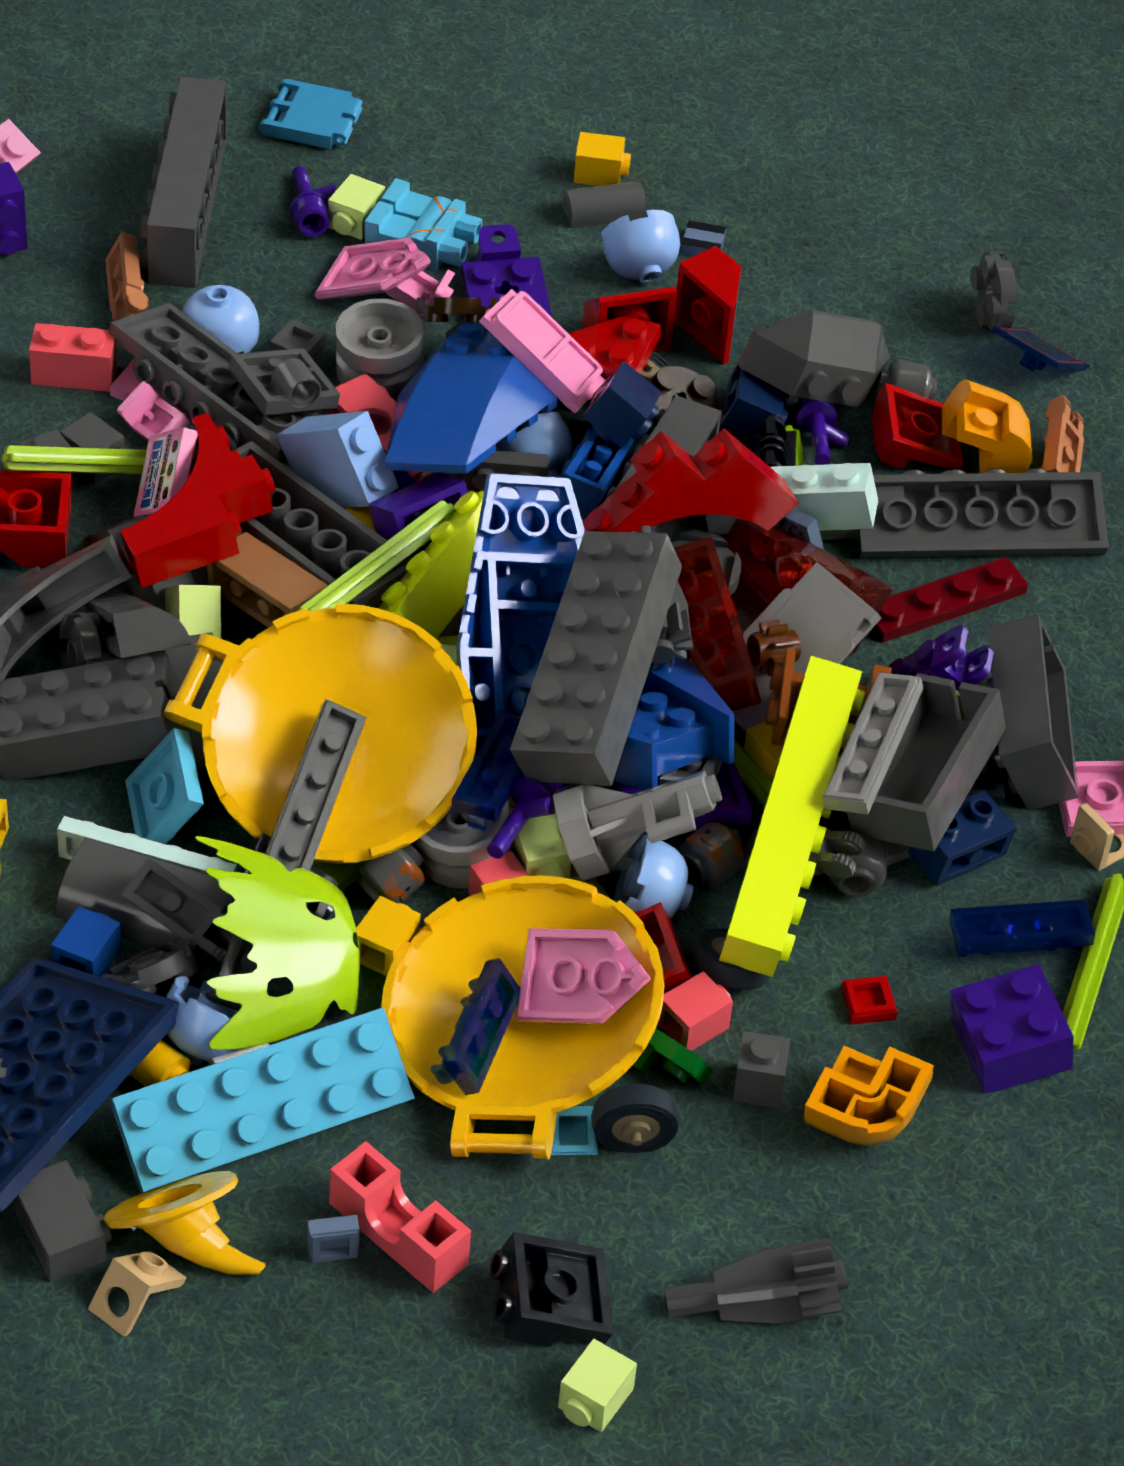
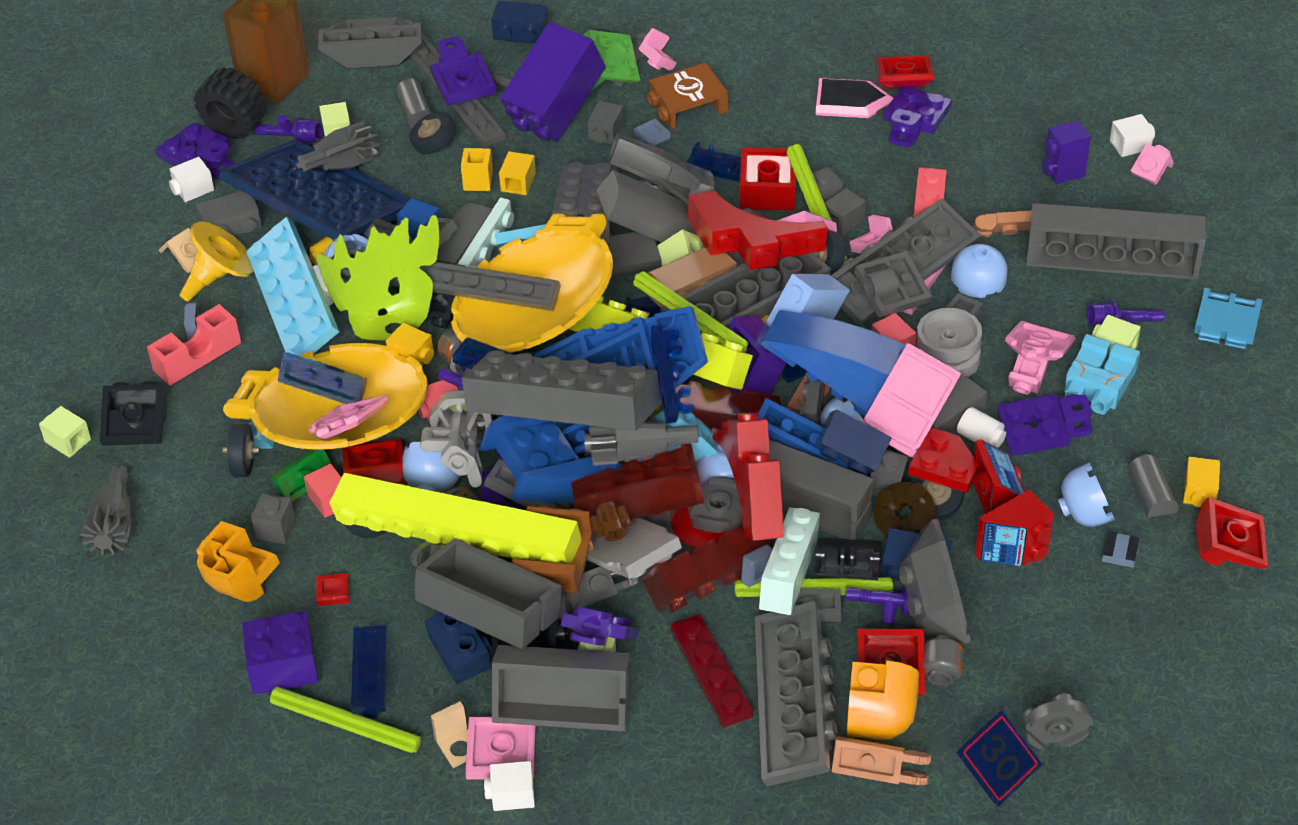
camera: 100 degrees right, 0 degrees up
(453, 305) = (964, 356): dark brown plate -> none
(565, 522) = (668, 373): none -> clear blue plate
(683, 149) = (1230, 535): none -> red slope
(872, 743) = (493, 552): light grey tile -> none

